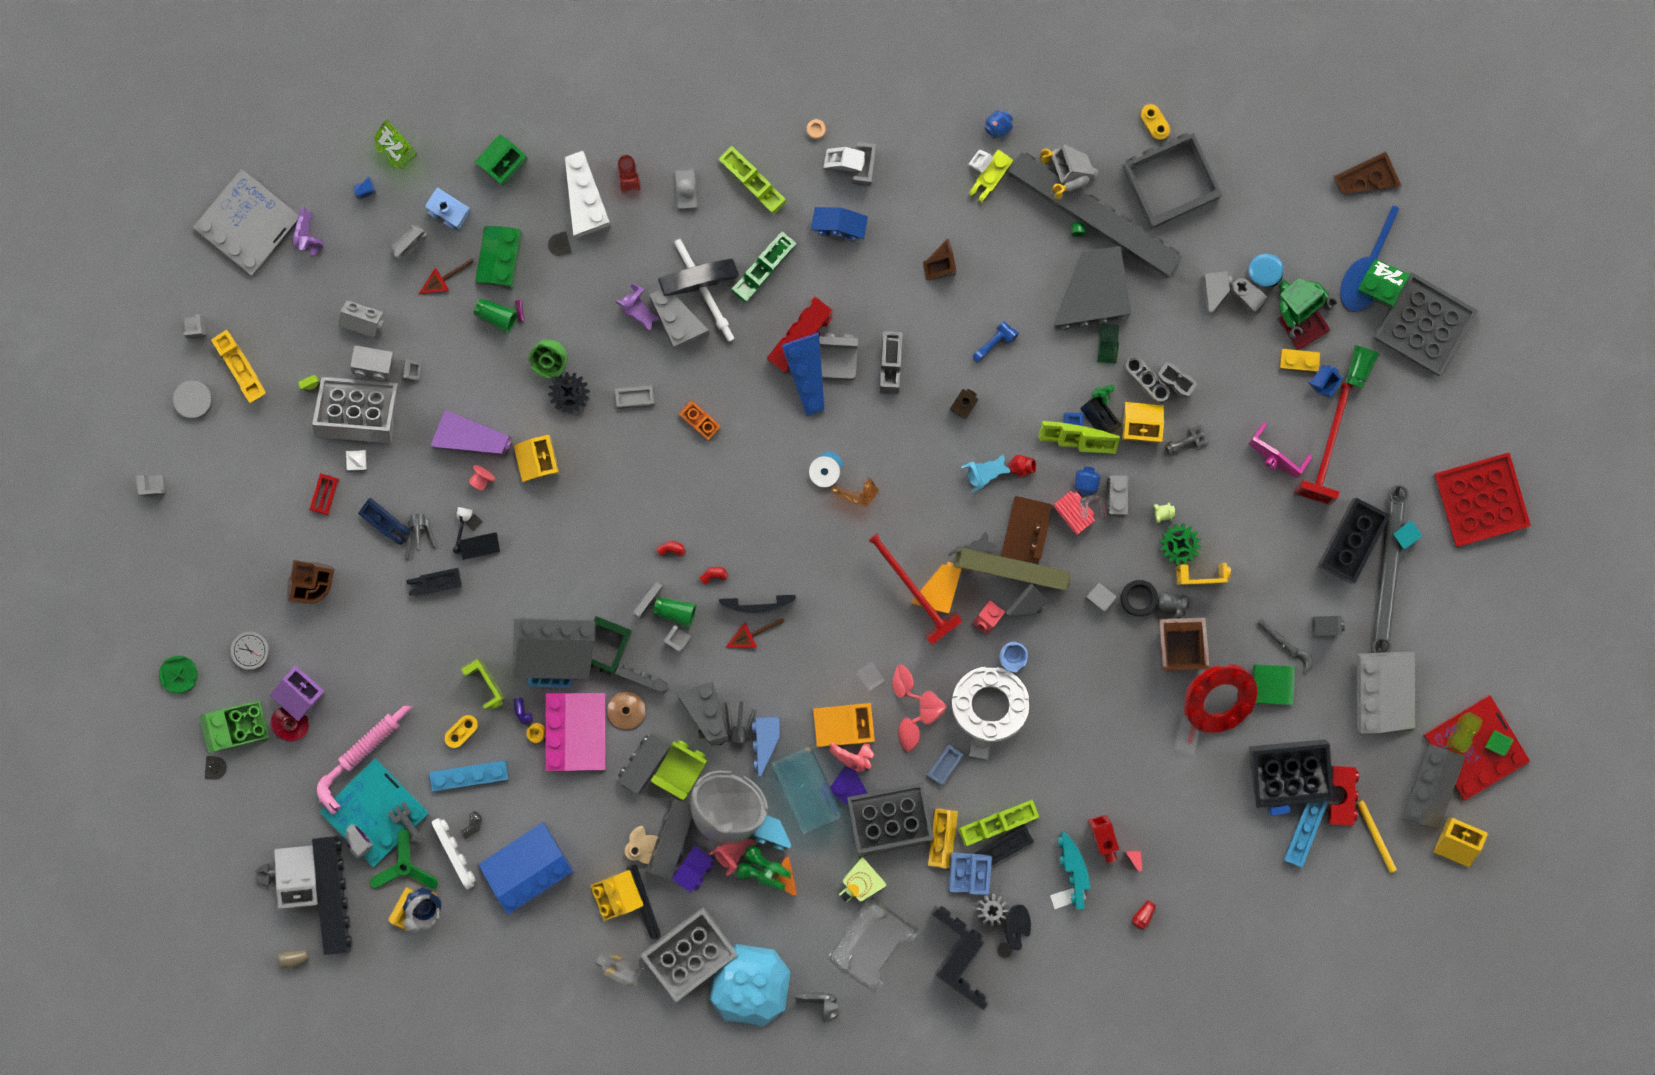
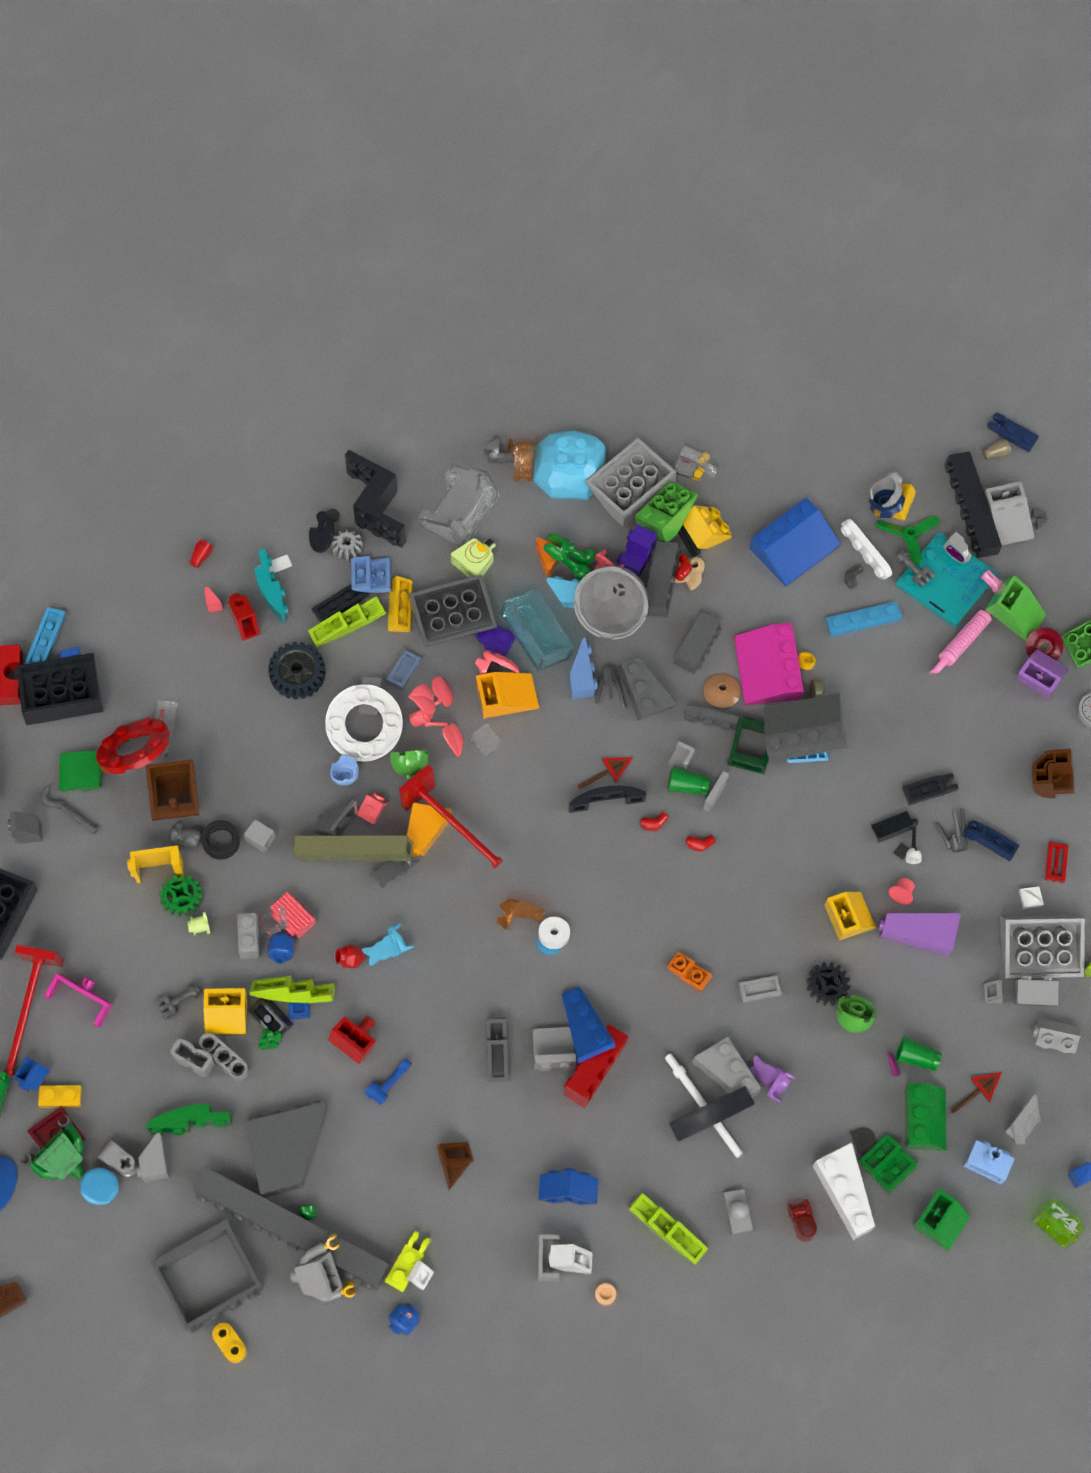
camera: 170 degrees right, 20 degrees down
(269, 979) = (1013, 432): none -> dark blue hinge
(311, 766) = (1016, 607): none -> bright green slope
(461, 731) = (878, 657): yellow plate -> none
(477, 665) = (860, 700): lime panel -> none
(519, 712) = (824, 676): dark purple arm -> none
(531, 700) = (816, 688): none -> olive tile
(541, 218) = (888, 1163): none -> green slope
(645, 847) = (684, 569): none -> red arm
(656, 913) = (667, 511): none -> bright green slope
(679, 769) = (662, 639): lime panel -> none
(763, 267) = (643, 1135): slope -> none
(799, 995) = (522, 455): none -> clear orange hair
(949, 659) = (409, 762): none -> bright green cylinder
(964, 403) = (415, 1013): dark brown brick -> none
(1024, 383) = (353, 1039): none -> red brick
(1026, 530) = (340, 893): reddish brown bracket -> none
(1068, 772) = (297, 657): none -> wheel
(1108, 343) = (267, 1093): clear green slope -> none
(1190, 323) = (180, 1119): none -> green slope

